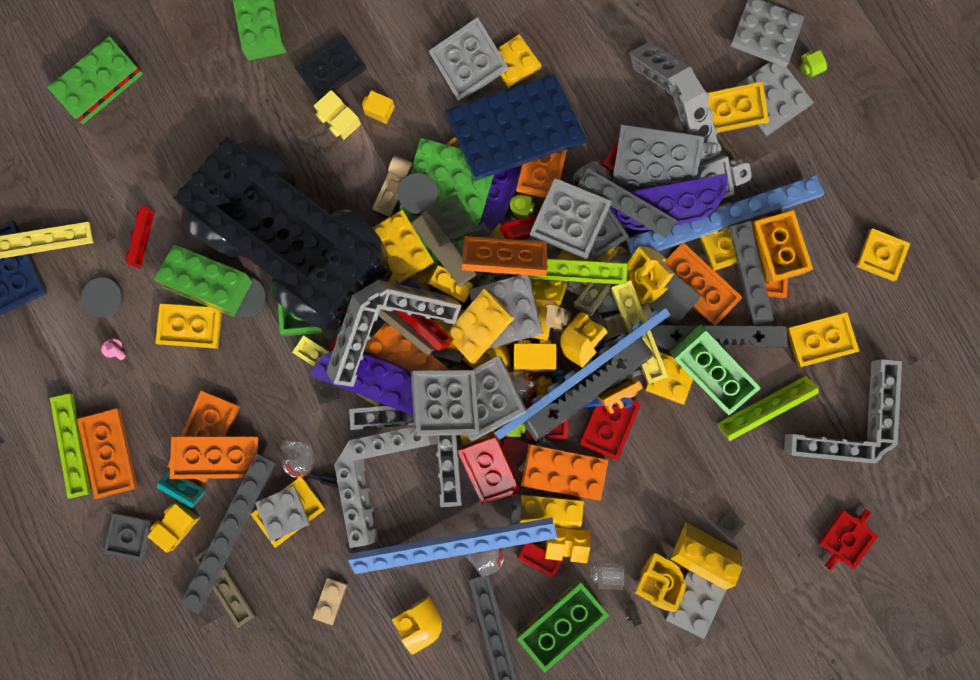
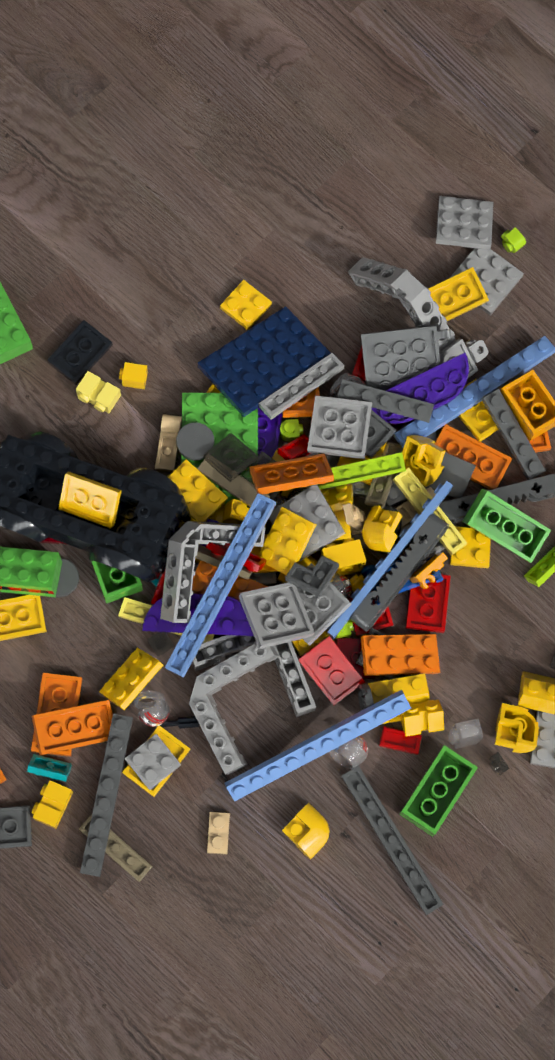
camera: 25 degrees left, 10 degrees down
(285, 422) = (130, 678): none -> yellow plate
(286, 228) = (89, 499): none -> yellow plate
(395, 356) = (220, 585): none -> medium blue plate
(468, 59) = (205, 313): light grey plate -> none
(494, 376) = (313, 580): none -> dark grey tile
(544, 163) = (301, 386): none -> light grey plate

